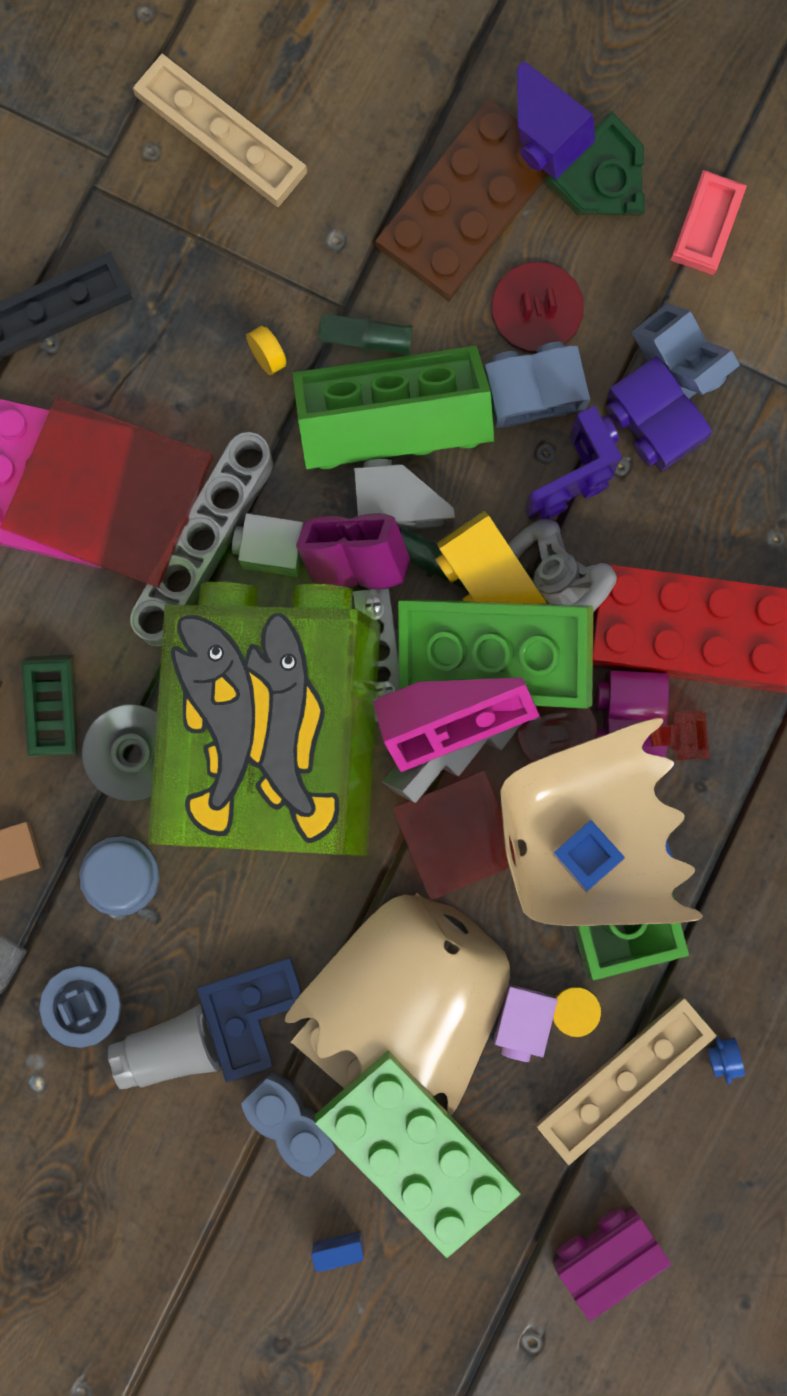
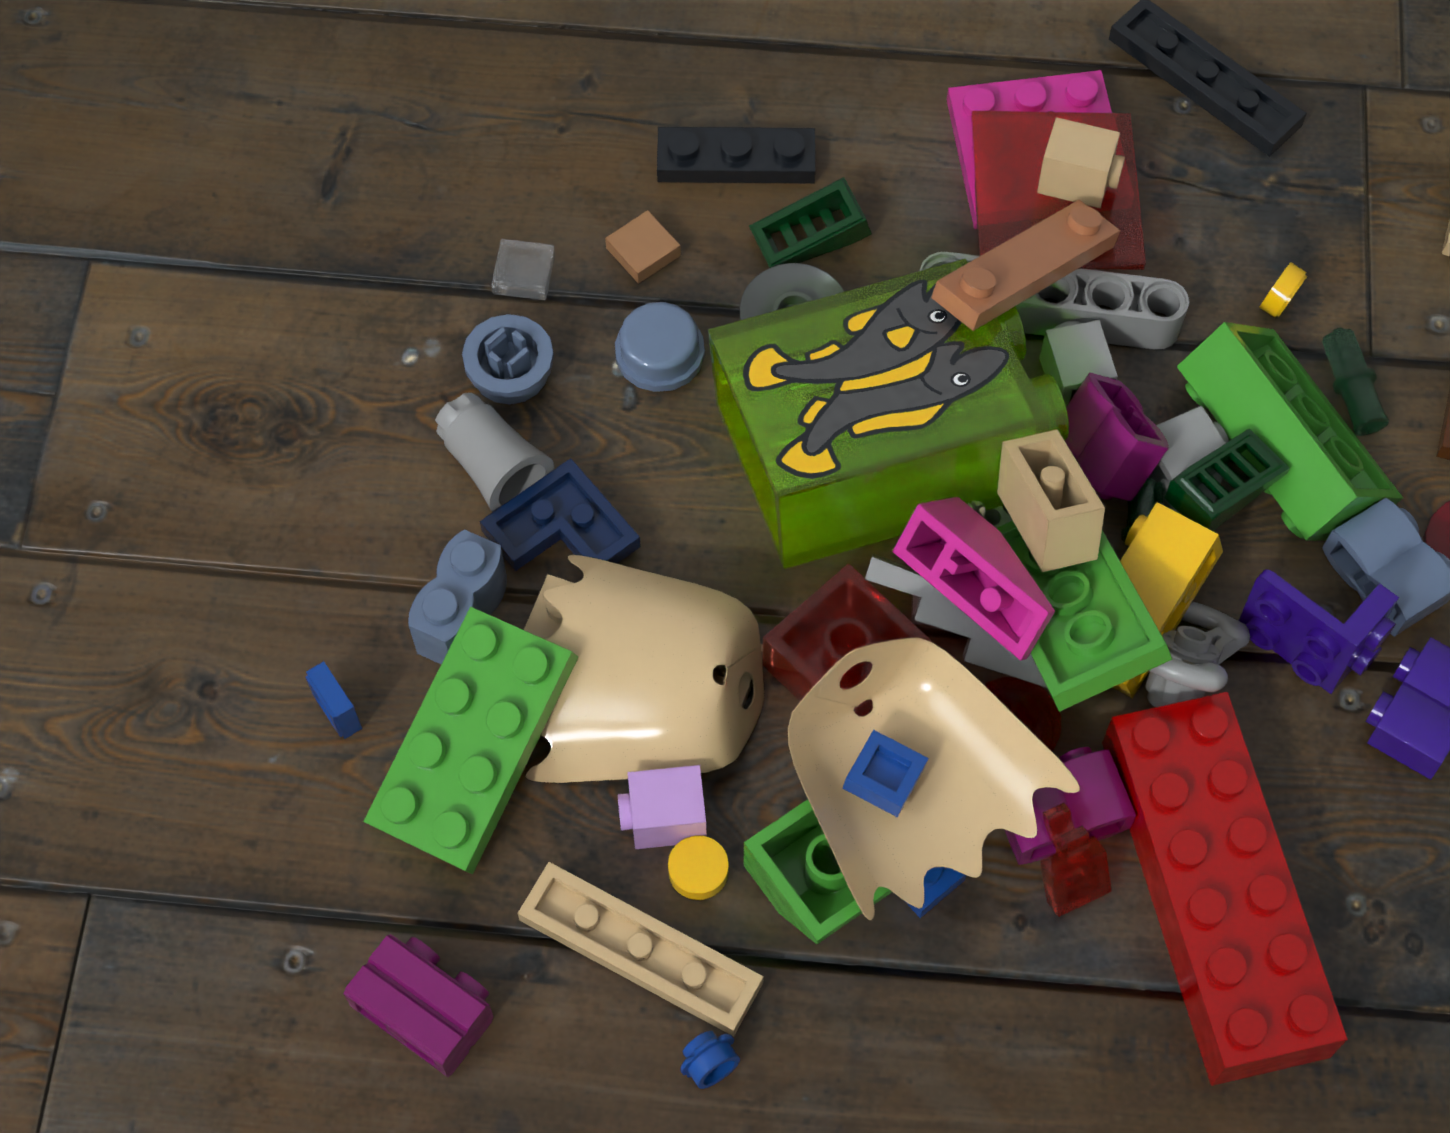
camera: 70 degrees right, 20 degrees down
(102, 465) = (1080, 163): none -> tan brick
(191, 558) = (1025, 264): none -> nougat plate
(417, 635) = (1050, 500): none -> tan brick
(443, 517) = (1198, 507): none -> dark green slope

